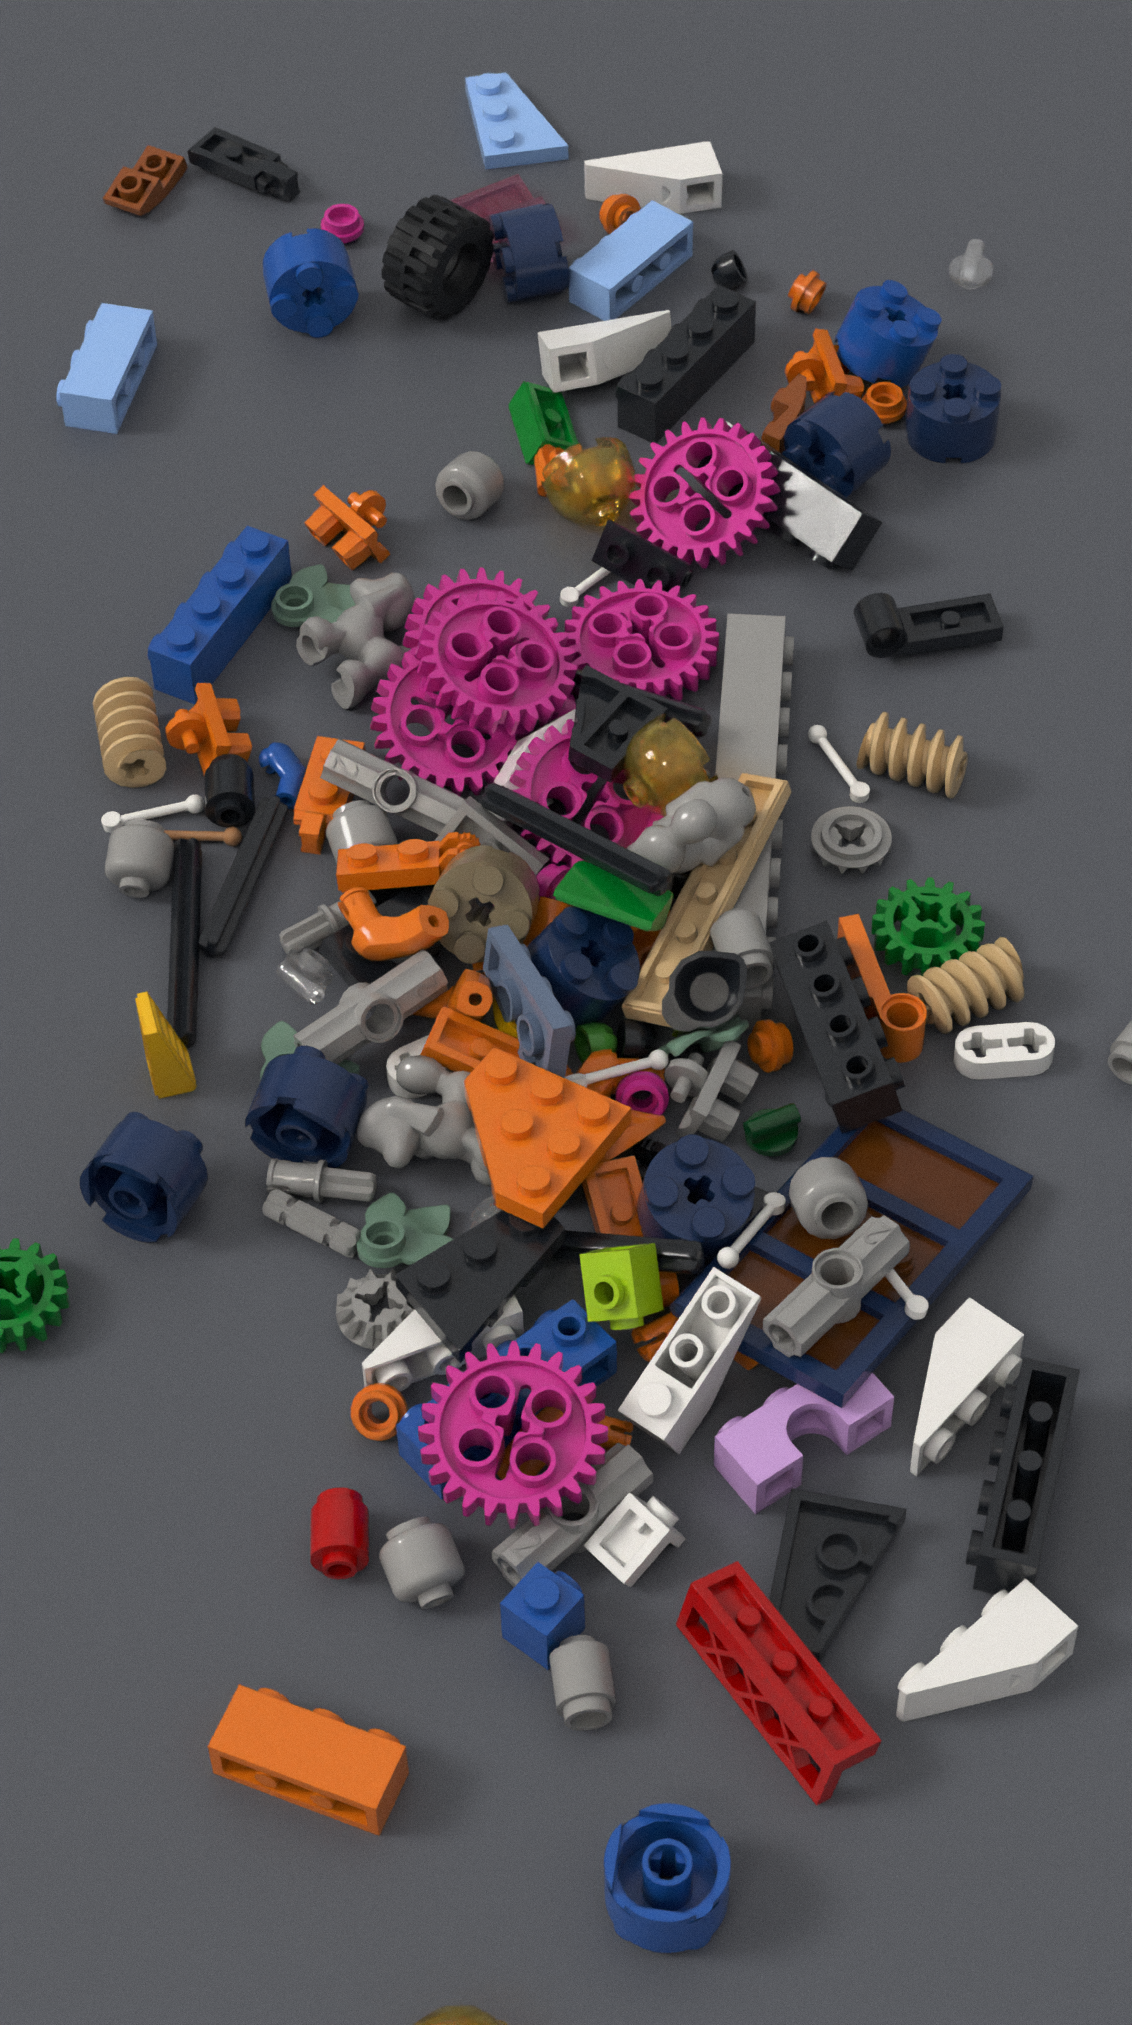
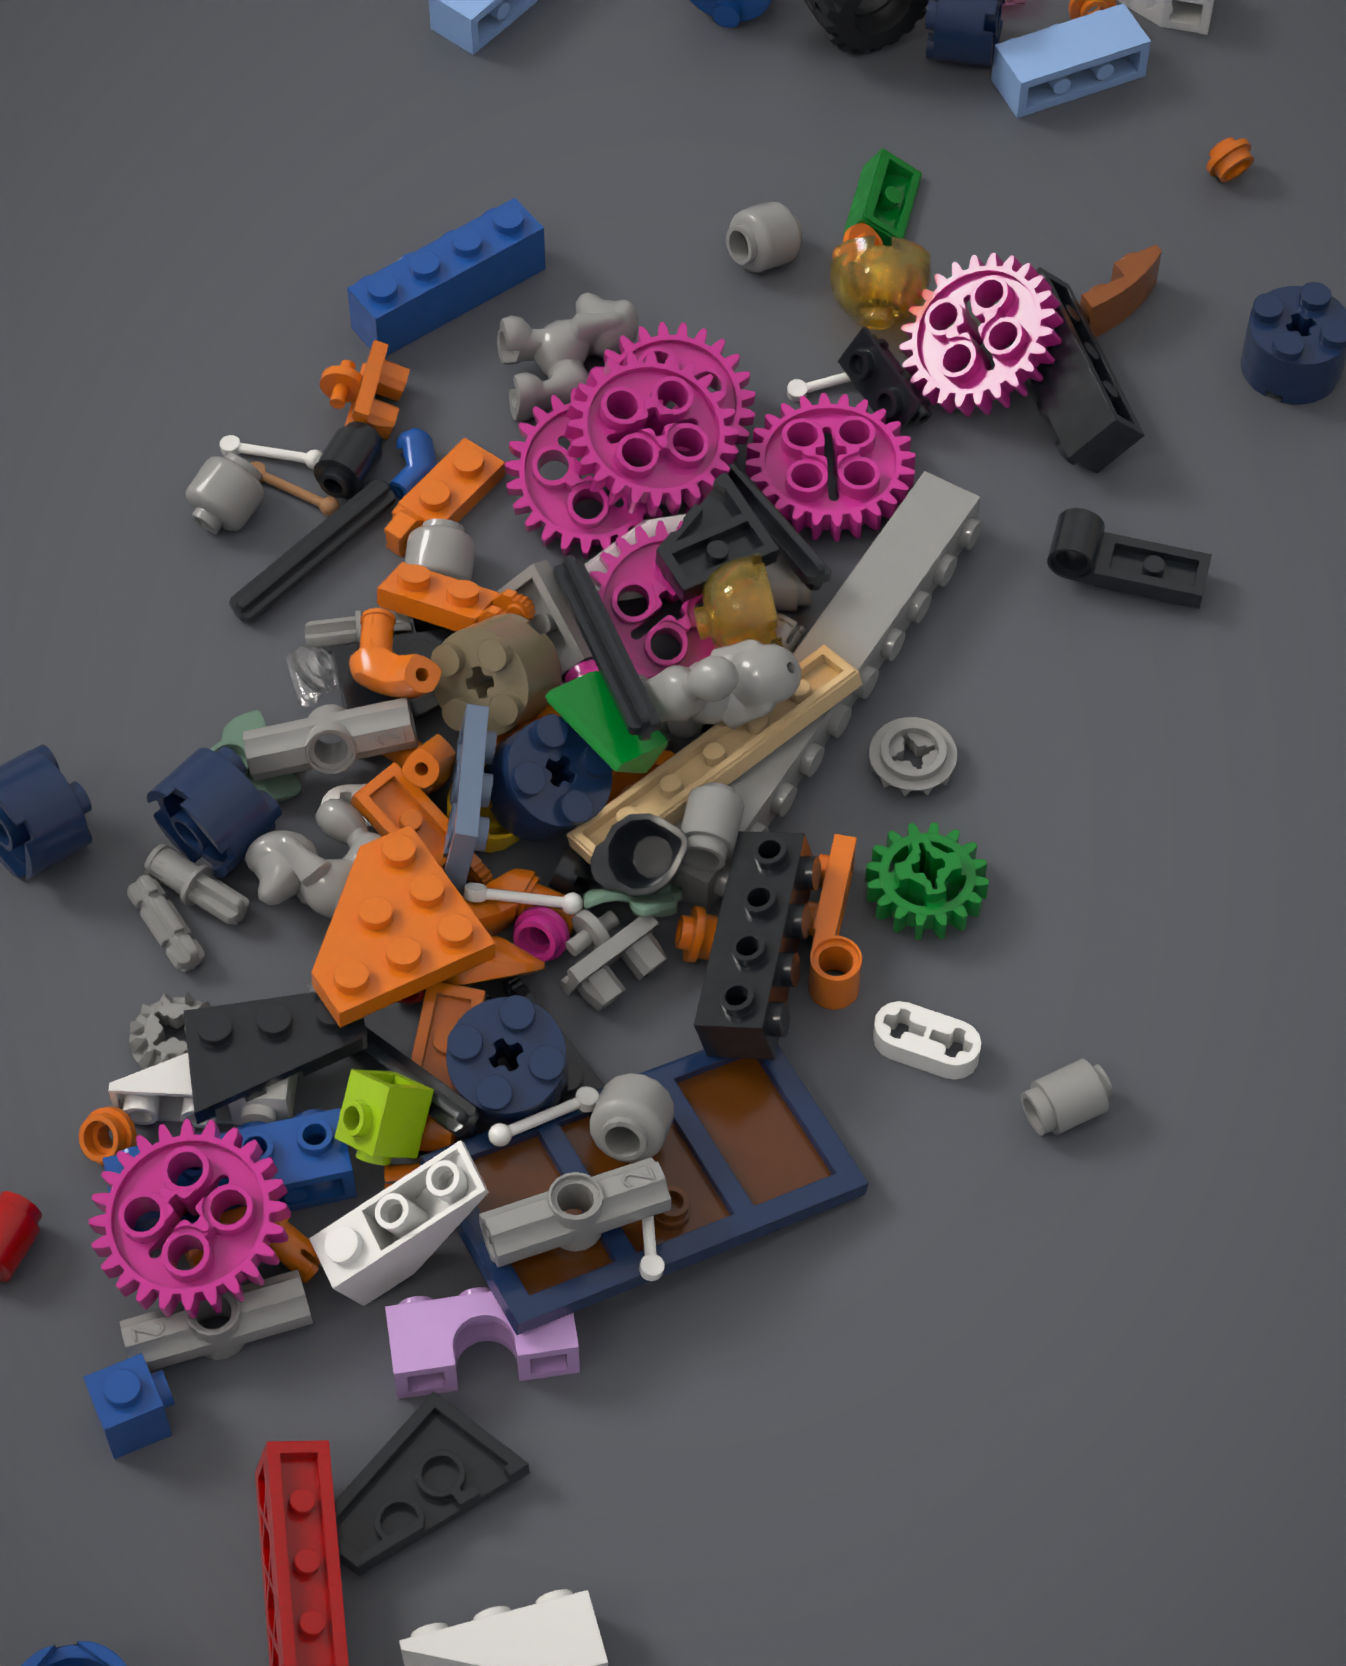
camera: 25 degrees right, 5 degrees up
(129, 732) = (290, 363): tan piece -> none
(164, 1051) = (125, 693): yellow slope -> none
(184, 940) = (214, 601): black axle -> none
(310, 596) = (543, 294): sand green plate -> none
(355, 521) = (632, 230): orange hips -> none
(369, 776) = (475, 503): light grey piece -> none
(399, 1234) = (238, 969): sand green plate -> none
(421, 1562) = (54, 1301): light grey head -> none
(583, 1682) = (126, 1488): light grey brick -> none
(594, 1037) = (537, 855): bright green hinge -> none
(599, 350) = (983, 144): white slope -> none
(634, 1537) = (263, 1368): white bracket -> none
(686, 364) = (1056, 190): black brick -> none
(729, 271) = (1167, 106): black hinge -> none
(773, 1130) = (646, 1022): dark green plate -> none
(823, 369) = (1186, 250): orange hips -> none
(838, 442) = (1146, 335): dark blue brick -> none
(858, 790) = (955, 707): white hinge -> none
(886, 334) = (1273, 235): blue brick -> none
(886, 401) = (1233, 306): orange plate -> none
(914, 755) = (1024, 695): tan piece -> none
(966, 1366) = (672, 1349): white slope -> none
(970, 984) = (926, 959): tan piece -> none
(1026, 1476) = (656, 1488): black brick -> none

